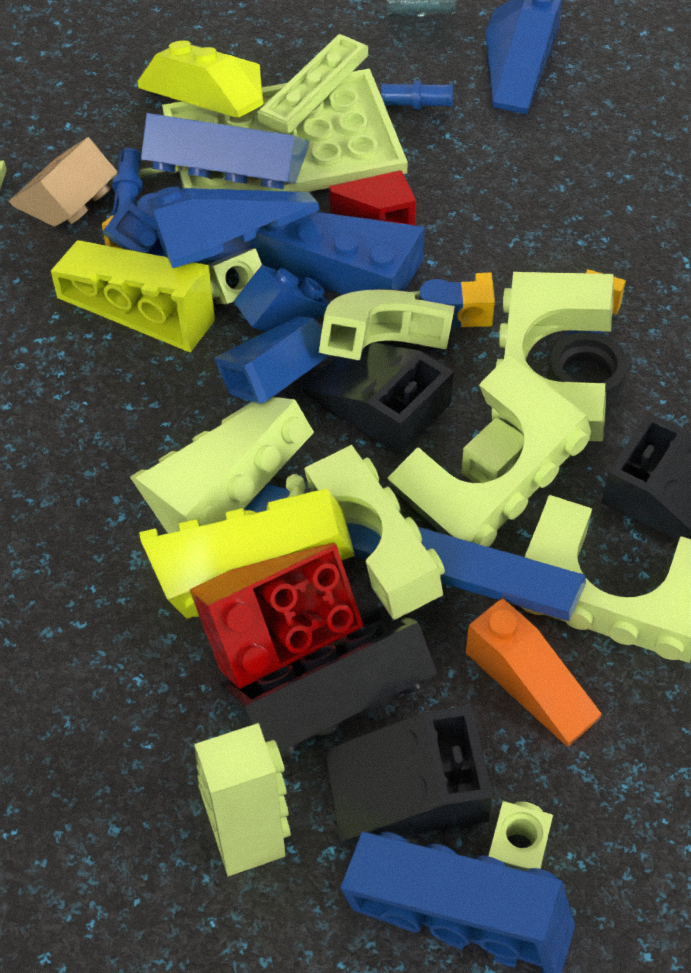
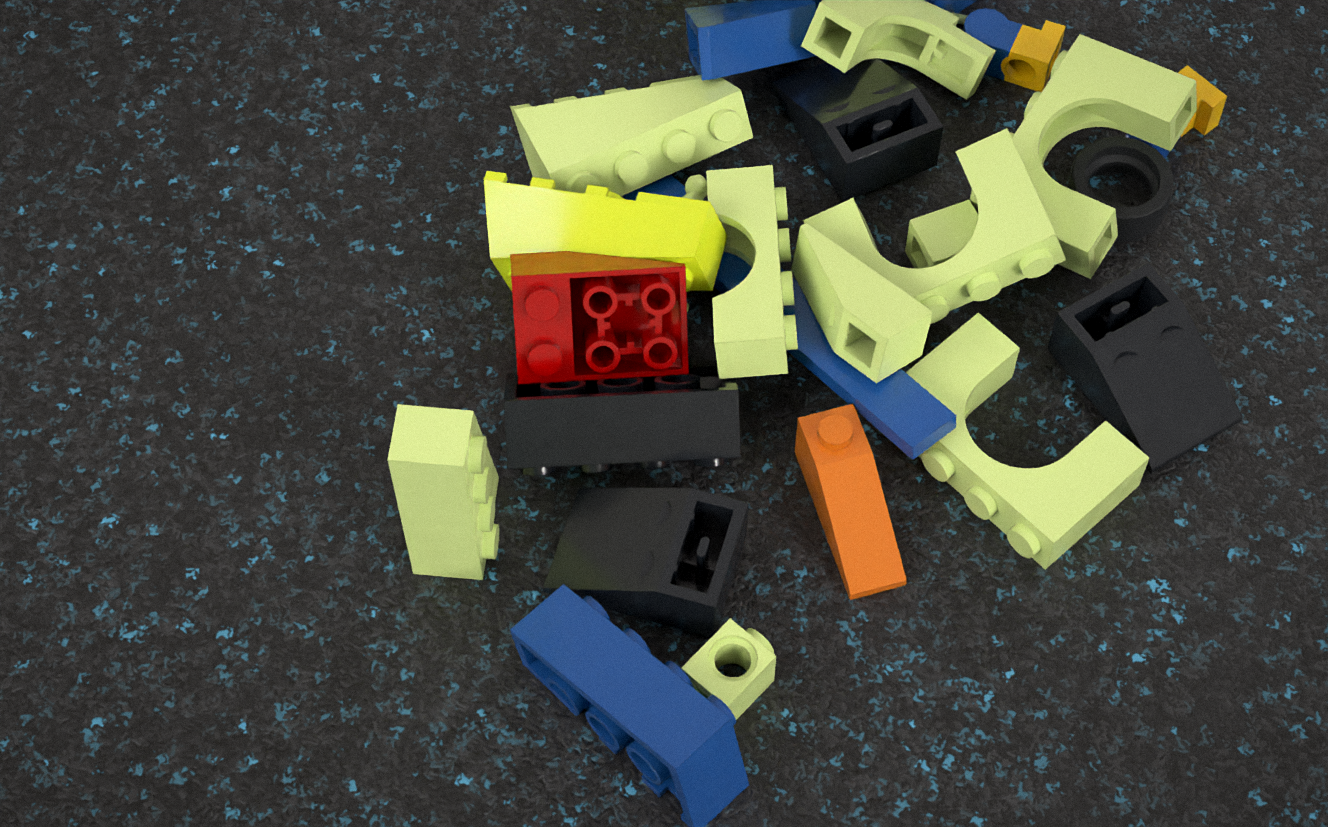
camera: 25 degrees right, 5 degrees up
(469, 524) = (858, 309): none -> yellowish green slope

